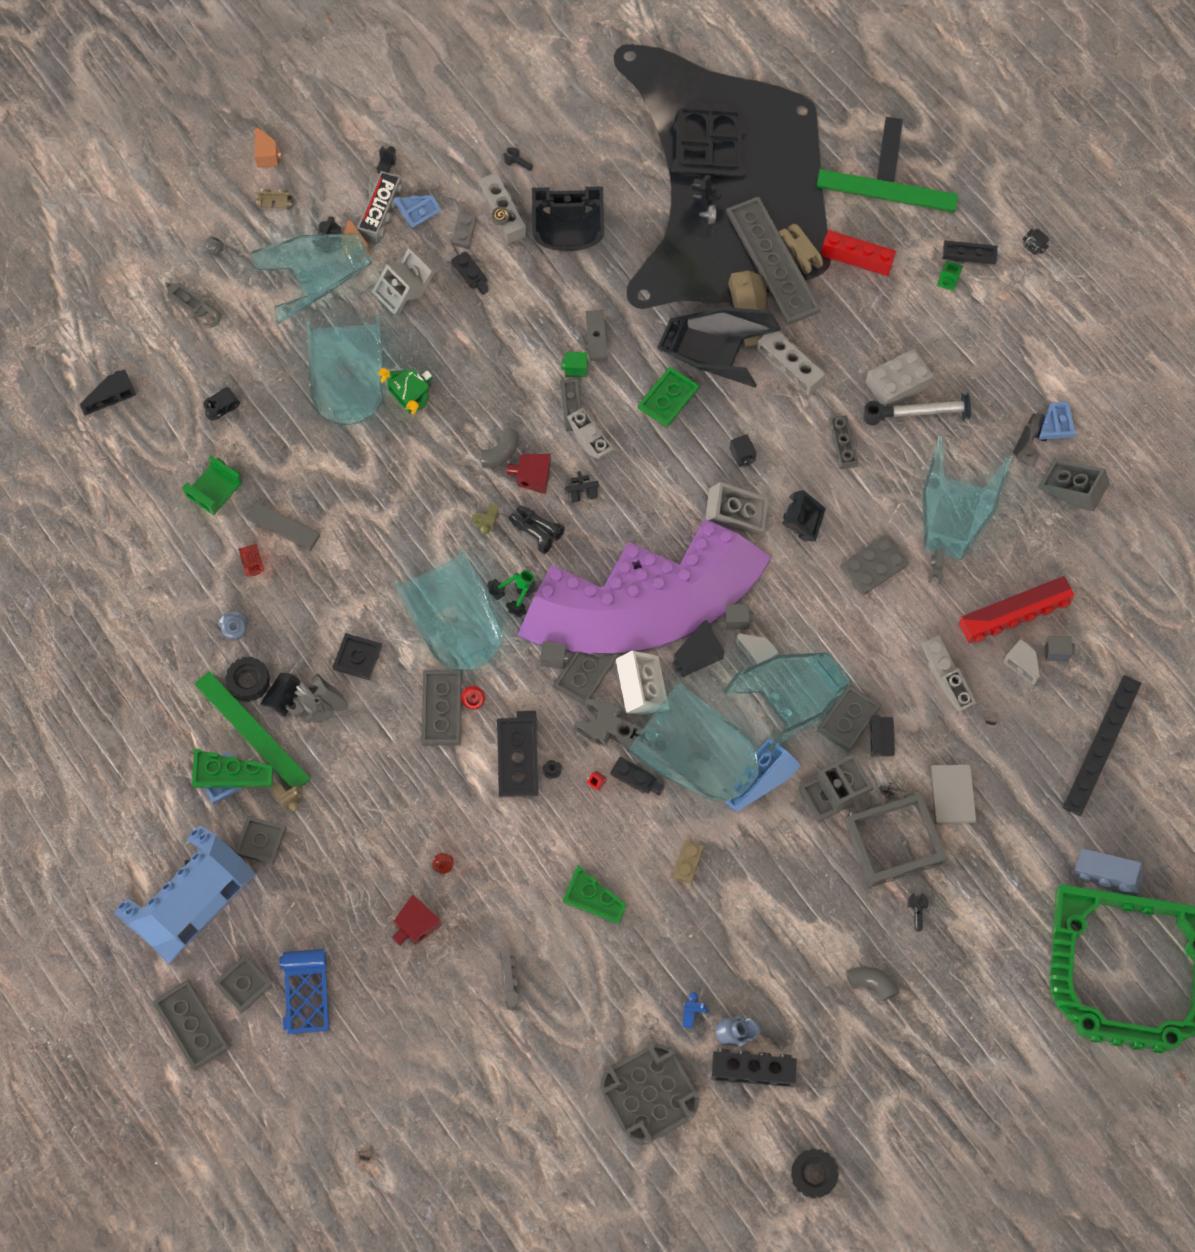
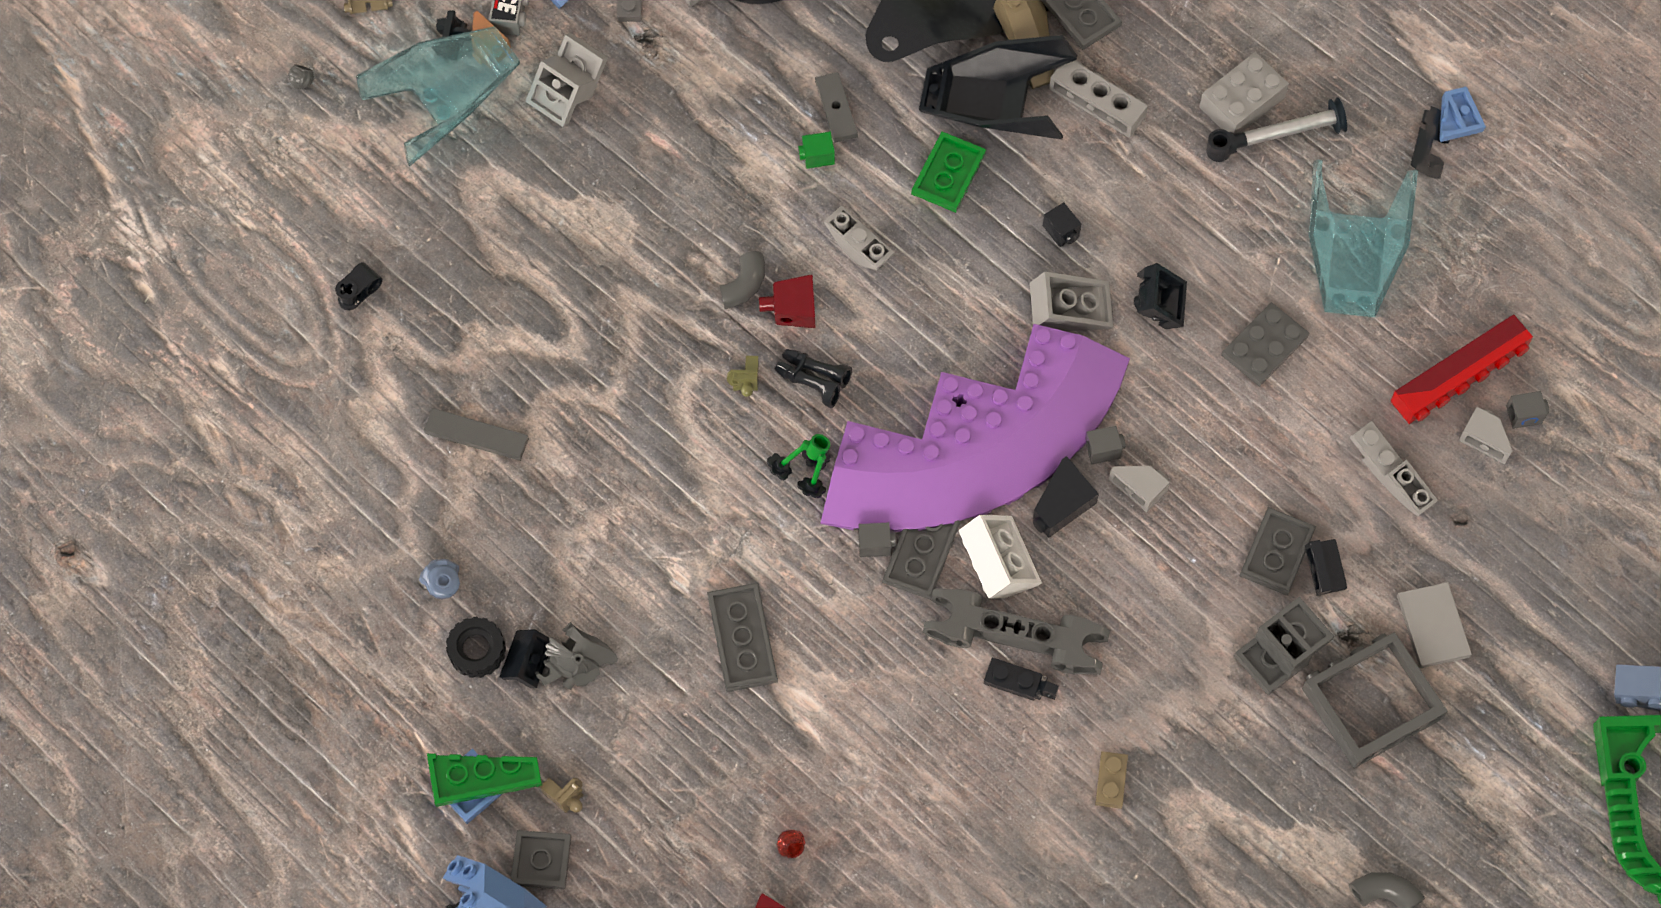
camera: 10 degrees left, 0 degrees up
(110, 391) = (205, 295): black slope -> none
(192, 302) = (288, 157): dark grey plate -> none
(213, 486) = (372, 397): green panel -> none
(251, 560) = (445, 487): clear red brick -> none
(251, 731) = (496, 715): green tile -> none
(345, 371) = (517, 213): clear light blue windscreen -> none
(357, 656) = (615, 590): black plate -> none
(408, 387) = (603, 220): green torso -> none
(453, 614) = (730, 510): clear light blue windscreen -> none
(470, 272) = (650, 52): black hinge -> none
(473, 697) = (781, 615): red hat -> none
(517, 736) = (854, 656): black hinge -> none
(552, 774) = (906, 698): black plate -> none
(570, 399) = (821, 198): dark grey tile -> none
(590, 488) = (852, 318): black hips -> none
(593, 898) = (996, 851): green wing -> none
(597, 775) = (967, 687): red piece -> none
(697, 748) = (1093, 627): clear light blue windscreen -> none
(773, 770) = (1190, 638): medium blue wedge -> none
(795, 686) = (1203, 524): clear light blue windscreen -> none
(845, 450) = (1192, 201): dark grey tile -> none
(918, 910) = (1423, 785): black bar -> none
(937, 563) = (1347, 328): dark grey plate -> none
(1076, 483) = (1500, 191): dark grey slope -> none
(1102, 745) = (1609, 526): black plate -> none

